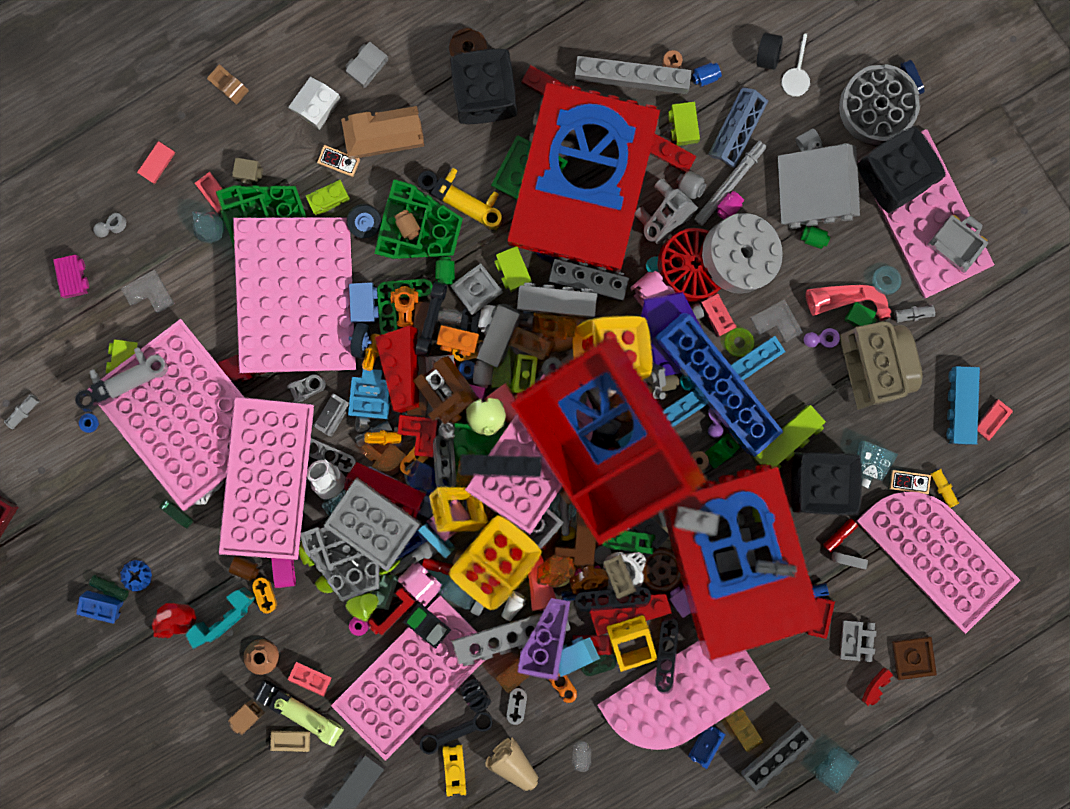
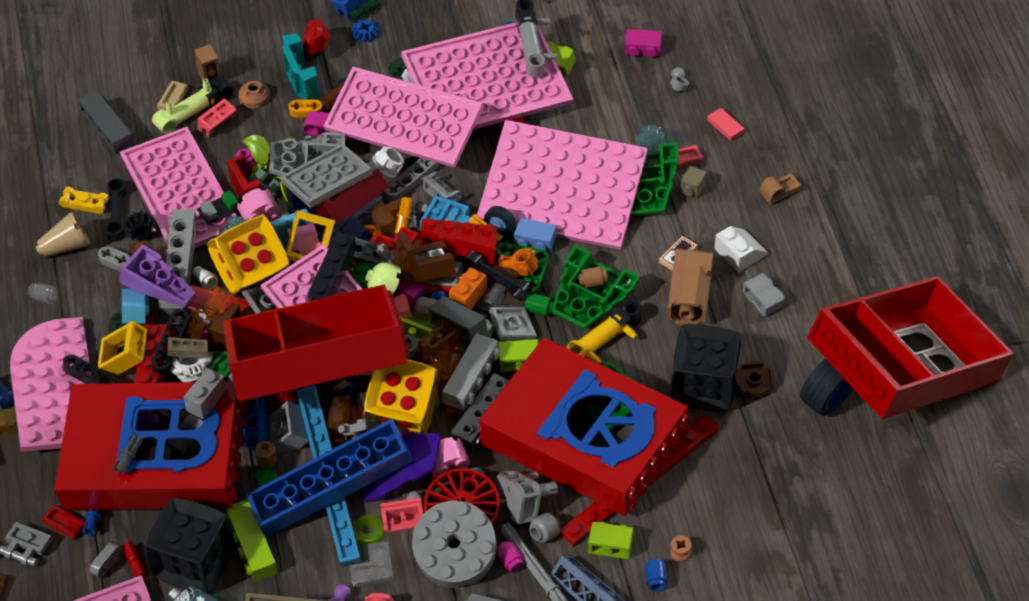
camera: 110 degrees right, 35 degrees down
(151, 287) = (611, 94): clear plate -> none
(303, 389) = (475, 179): light grey piece -> none
(328, 197) = (644, 233): lime brick -> none
(363, 221) = (612, 253): black wheel -> none
(567, 686) = (111, 301): orange piece -> none
(632, 75) = (677, 506): light grey brick -> none

